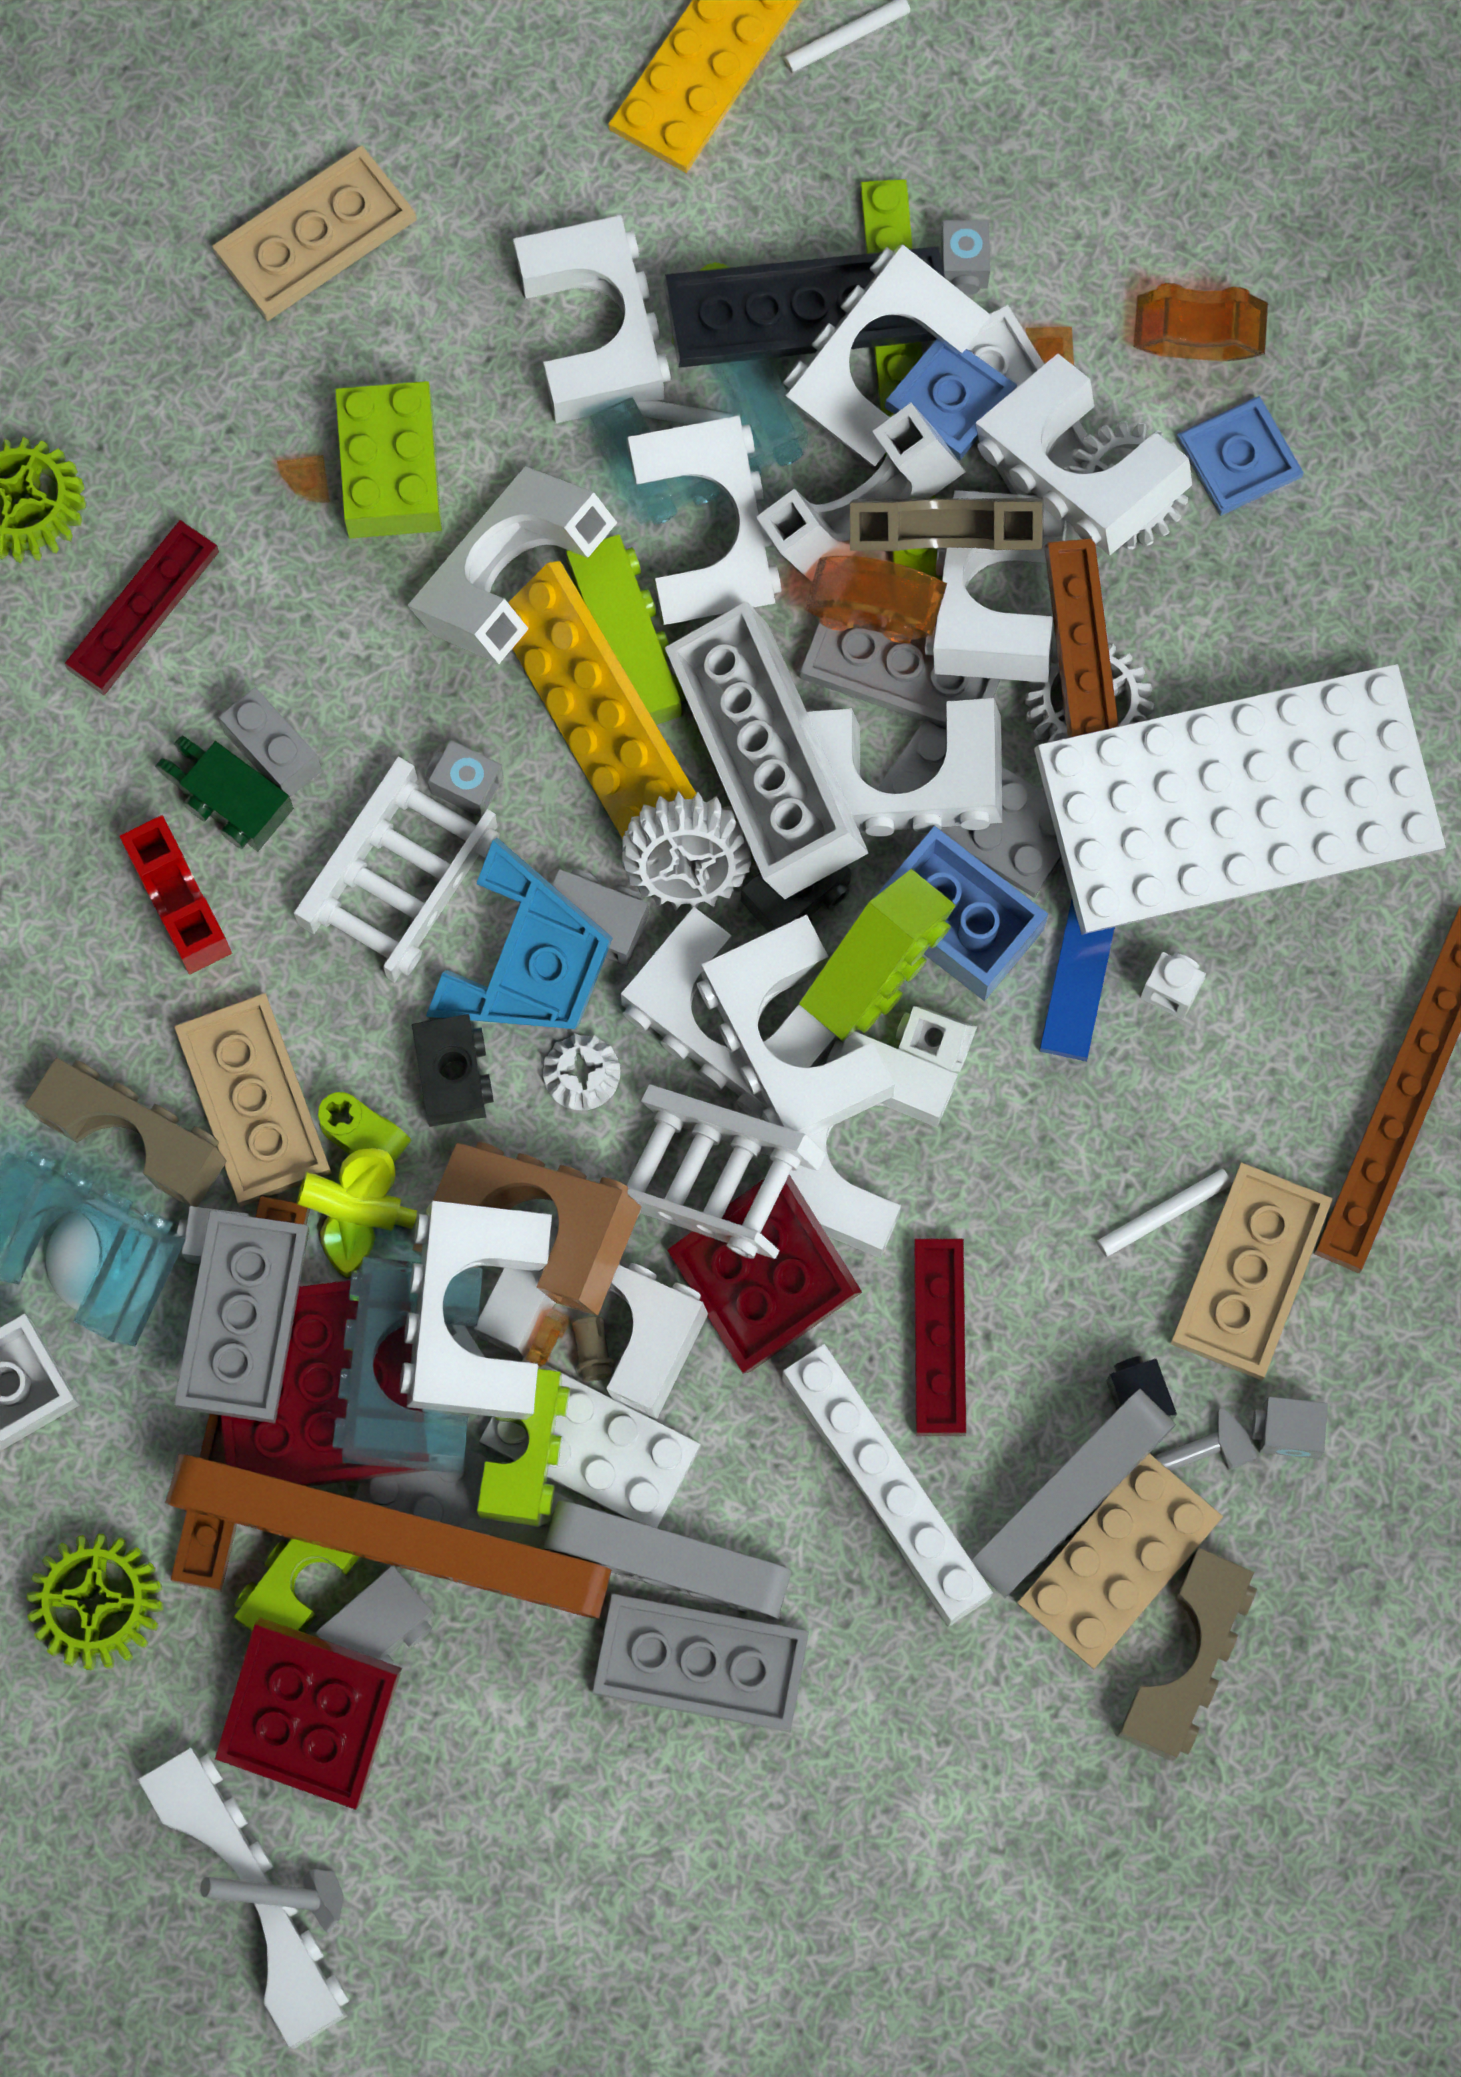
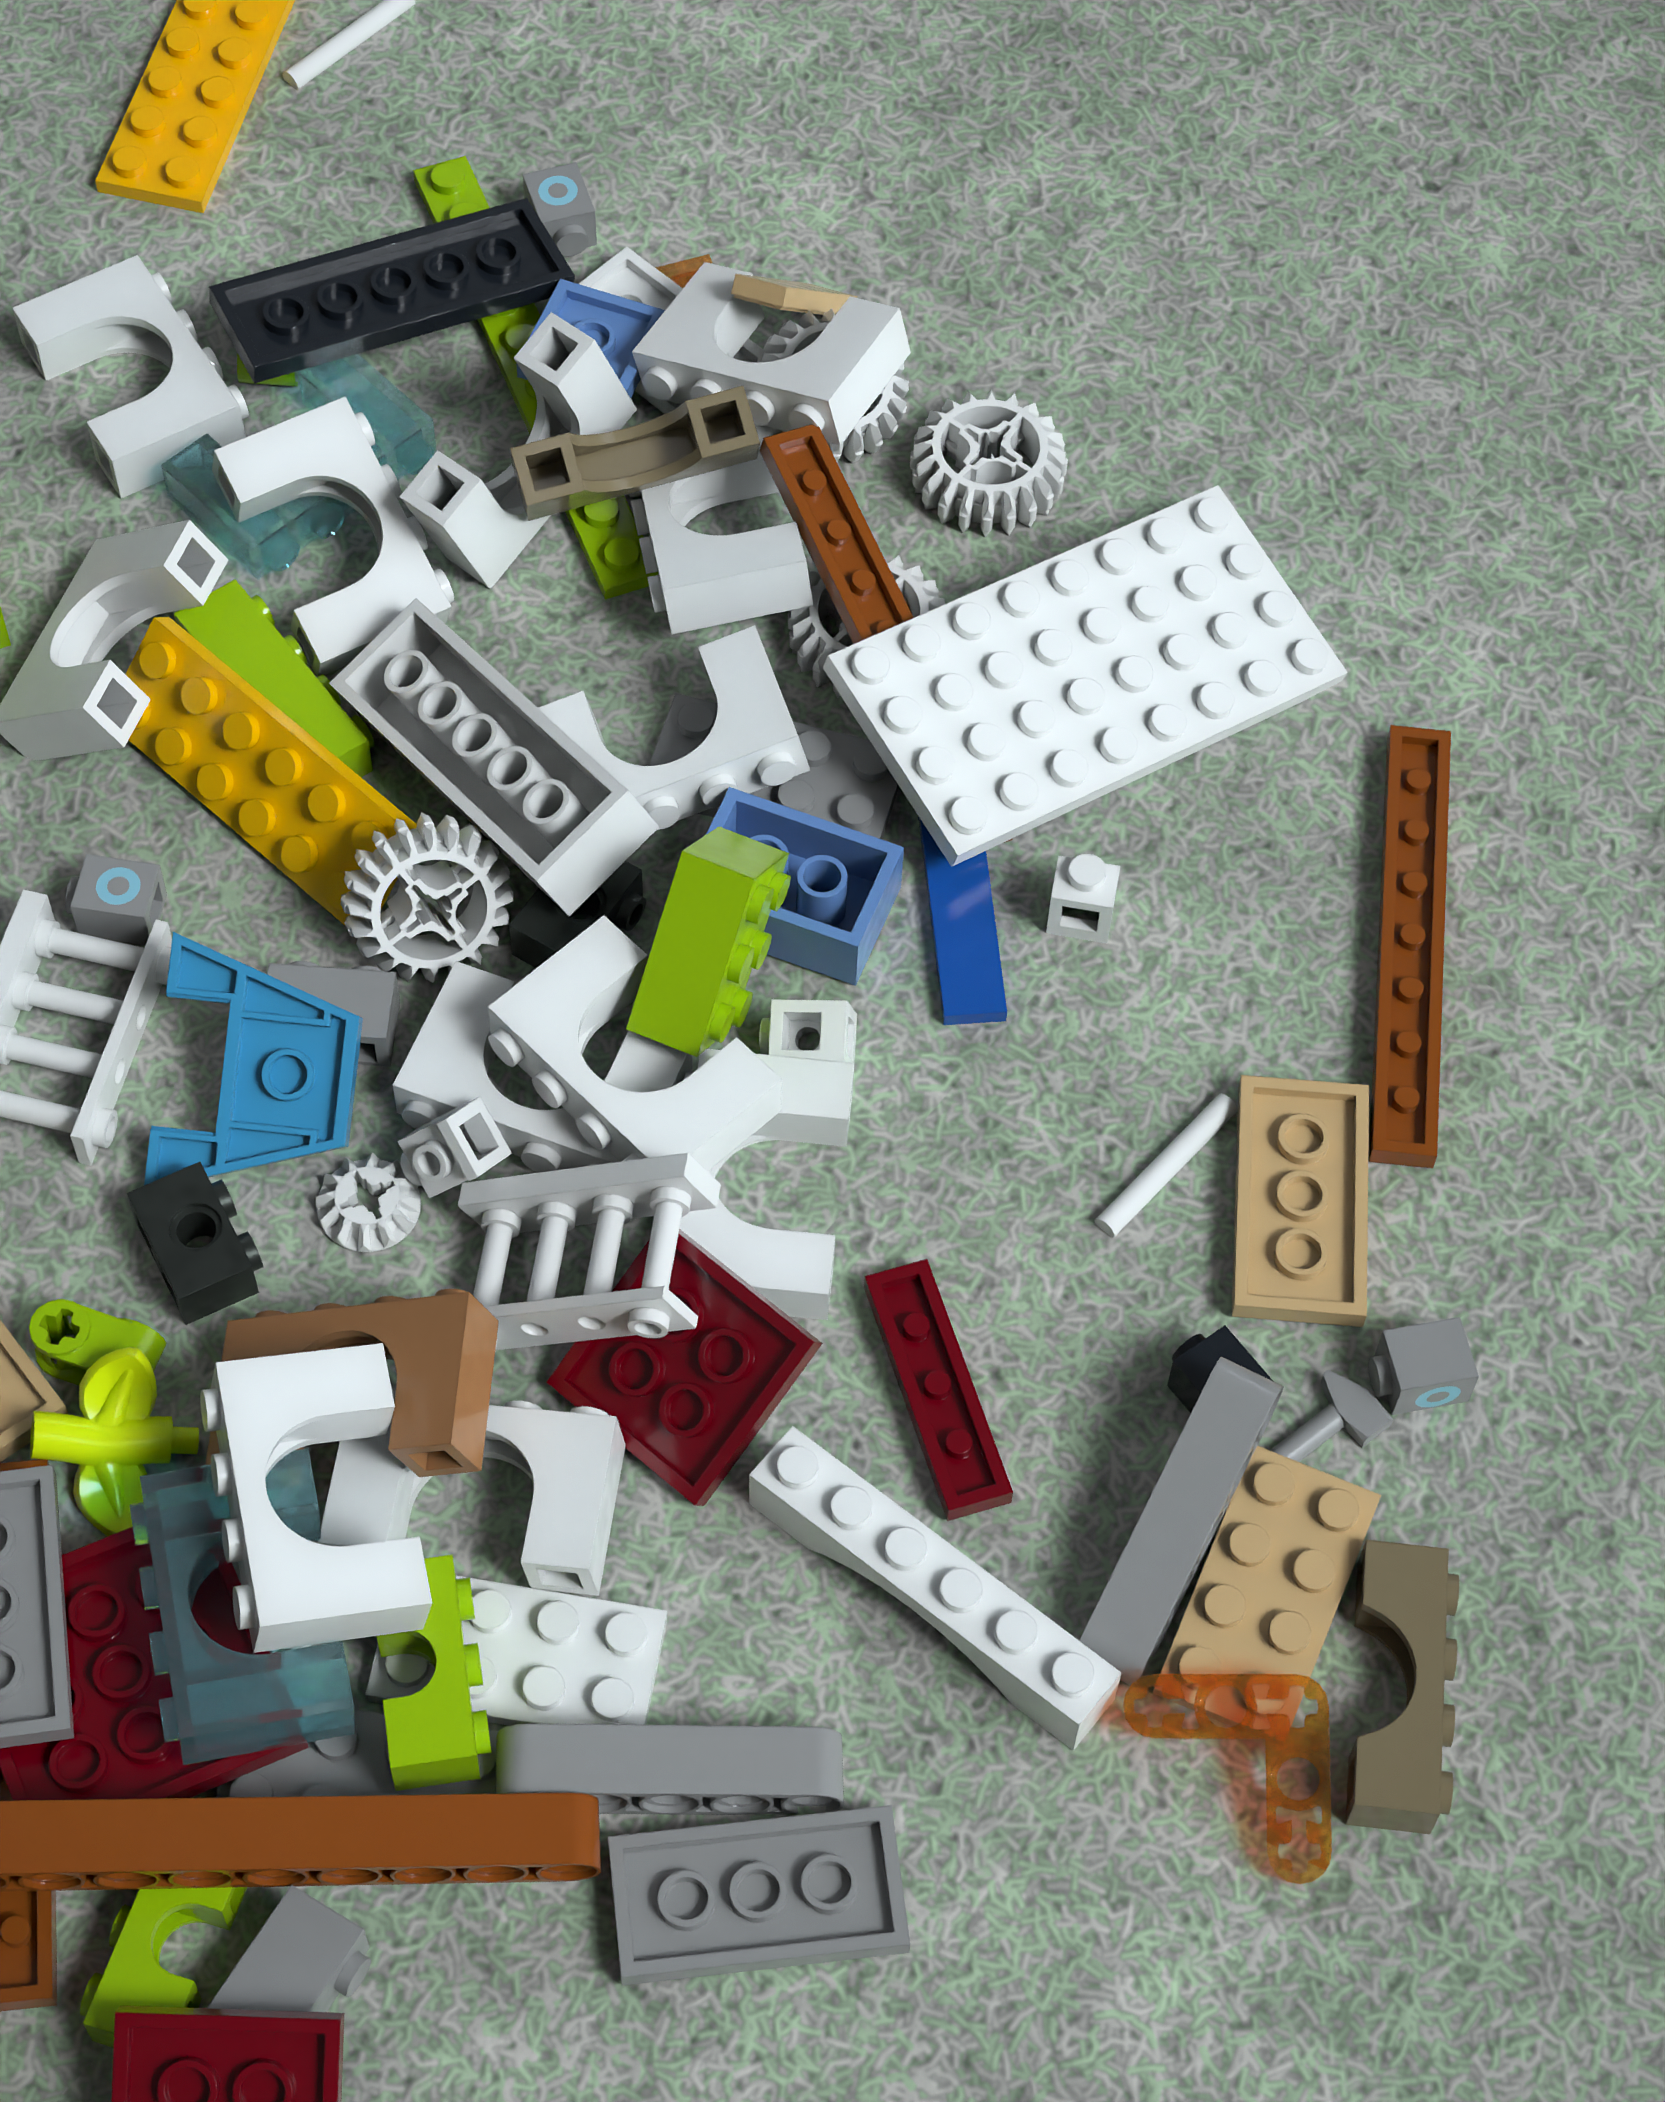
camera: 20 degrees left, 15 degrees down
(552, 1328) = (424, 1520): clear orange tile -> none
(592, 1349) = (489, 1542): dark tan pin -> none
(638, 1059) = (440, 1154): none -> white brick
(875, 597) = (572, 561): clear orange brick -> none
(888, 673) = (604, 644): light grey plate -> none
(900, 287) = (499, 228): white arch -> none
(1088, 1672) = (1281, 1745): none -> clear orange beam
(1120, 399) = (788, 294): none -> tan tile
(1201, 323) = (857, 213): clear orange brick -> none
(1240, 455) = (957, 338): medium blue tile -> none
(1248, 615) = (992, 477): none -> white gear

